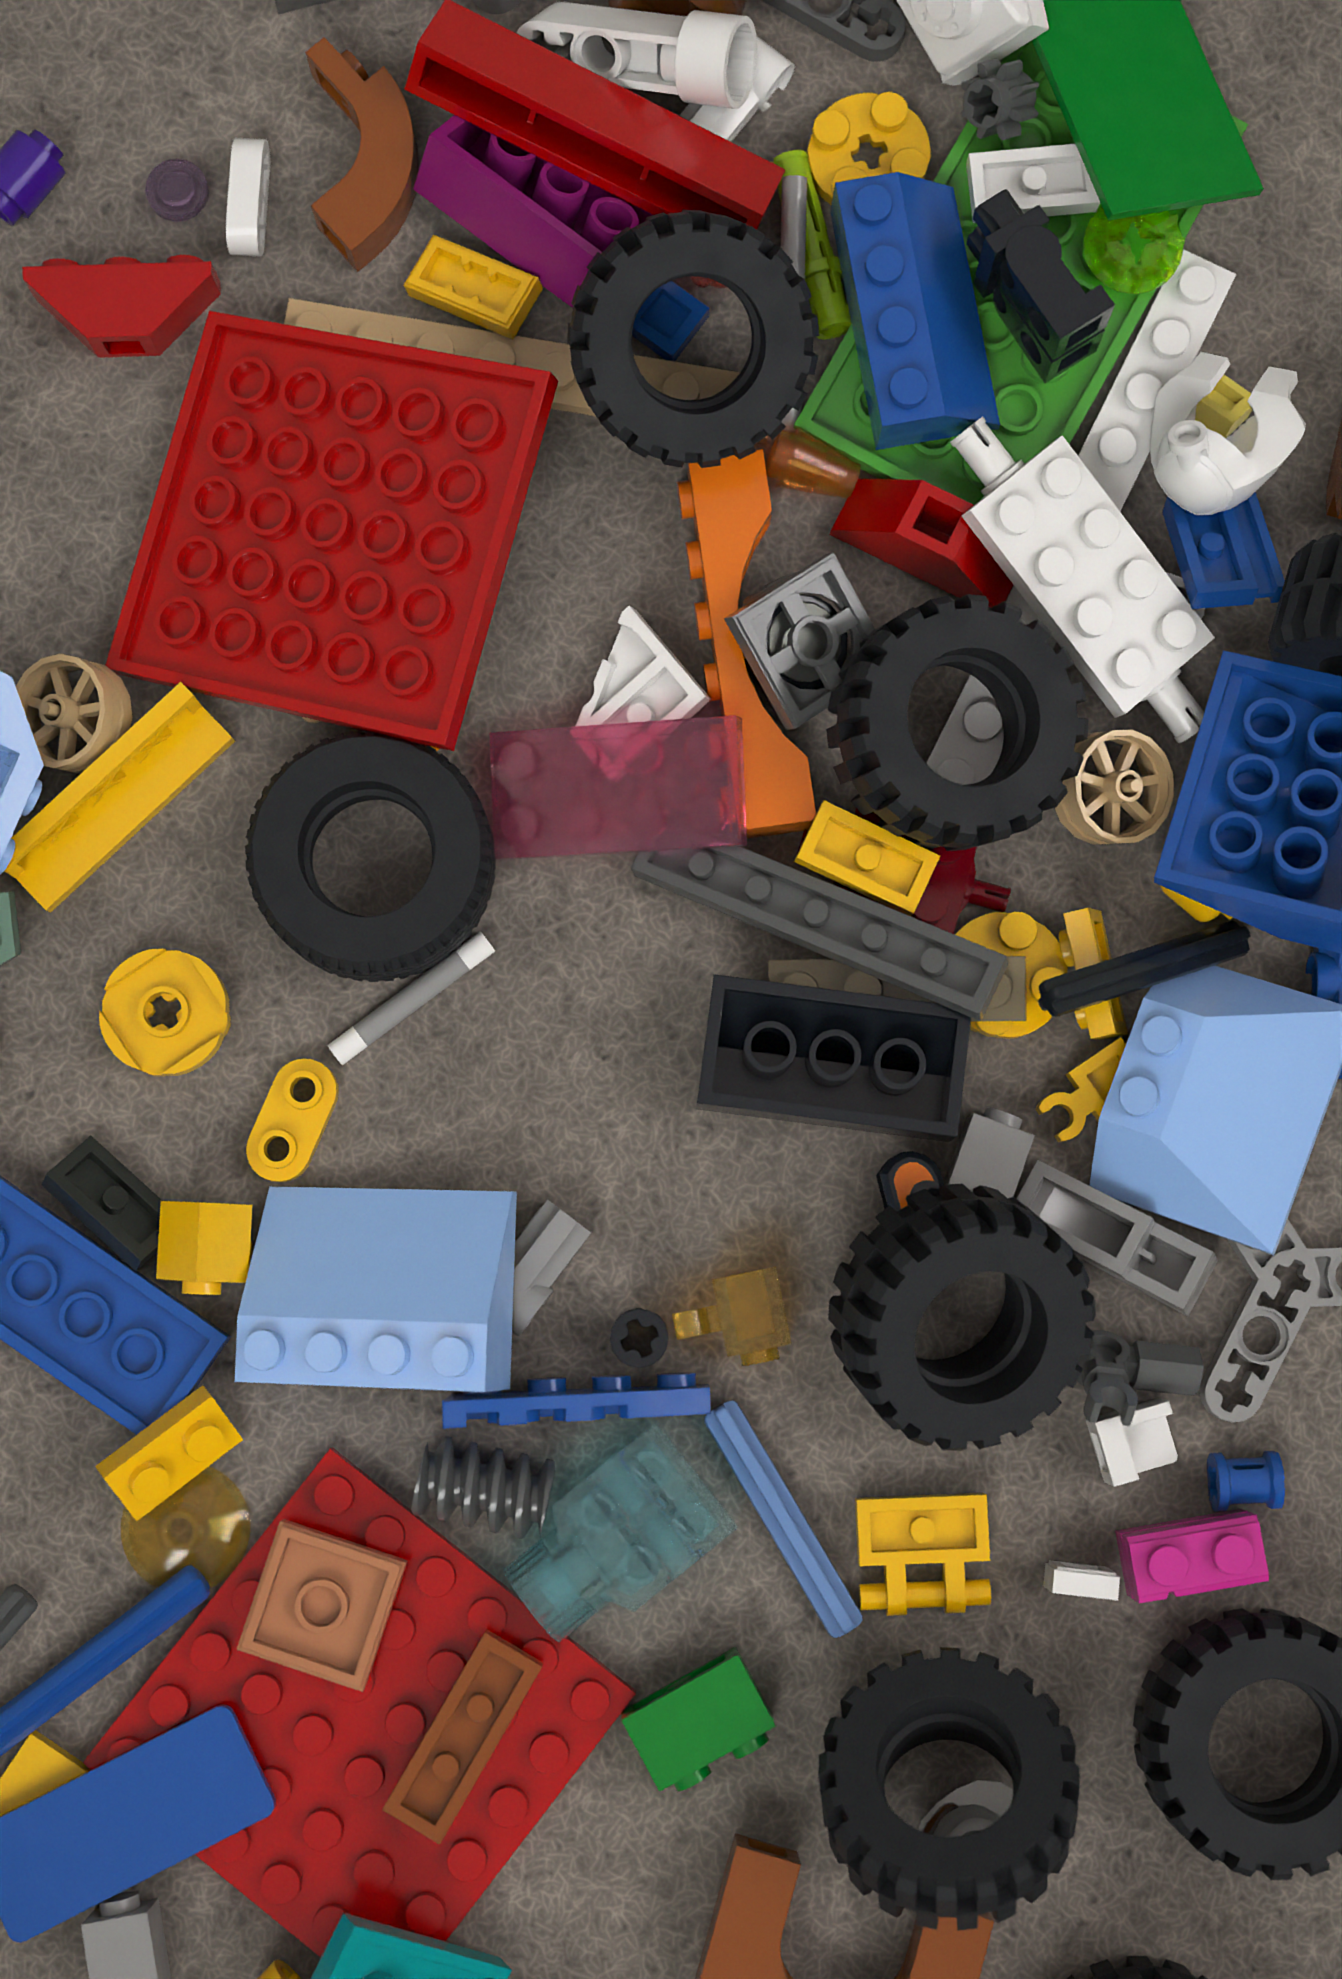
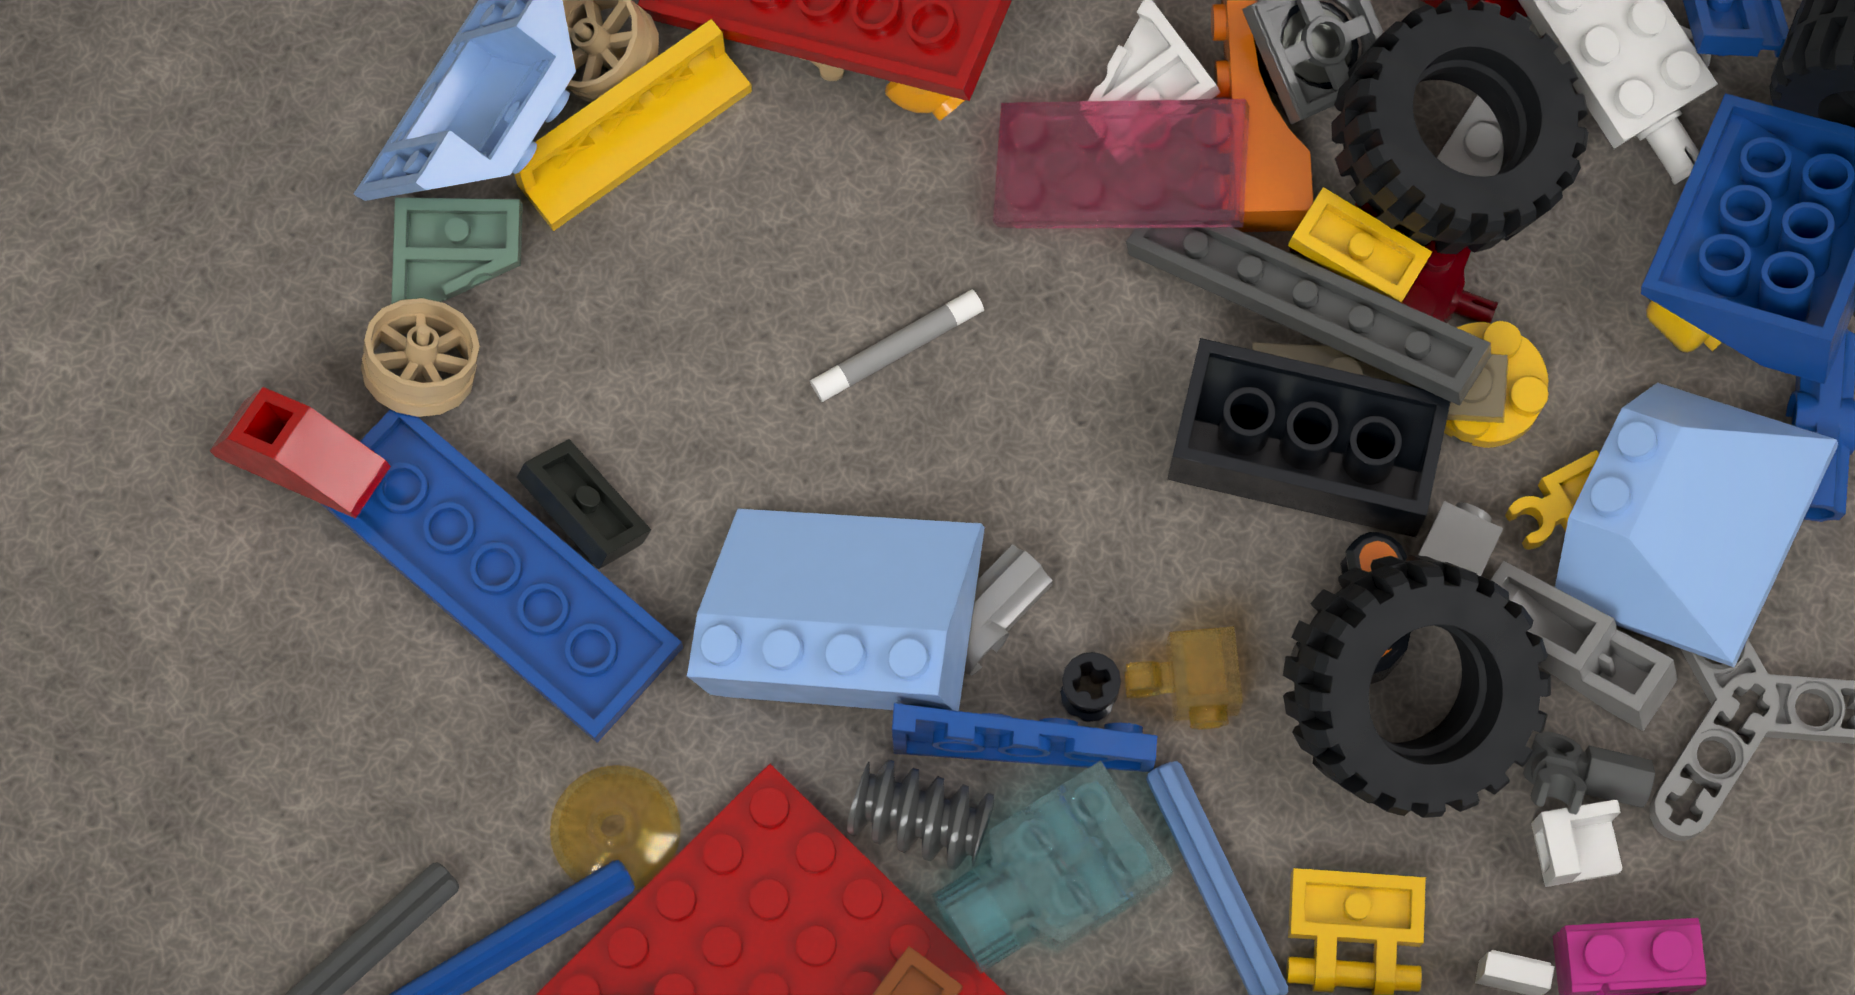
camera: 10 degrees right, 10 degrees down
(129, 1005) = (666, 298): yellow plate -> none
(169, 1453) = (611, 746): yellow plate -> none
(204, 1245) = (669, 548): yellow brick -> none
(295, 1121) = (769, 445): yellow plate -> none
(310, 795) = (864, 124): black tyre -> none
(322, 1605) = (748, 904): nougat plate -> none
(1083, 945) = (1569, 364): yellow plate -> none
(1117, 788) = (1609, 214): tan wheel -> none
(1143, 968) = (1624, 380): black axle -> none
(1245, 1481) = (1689, 895): blue bush -> none

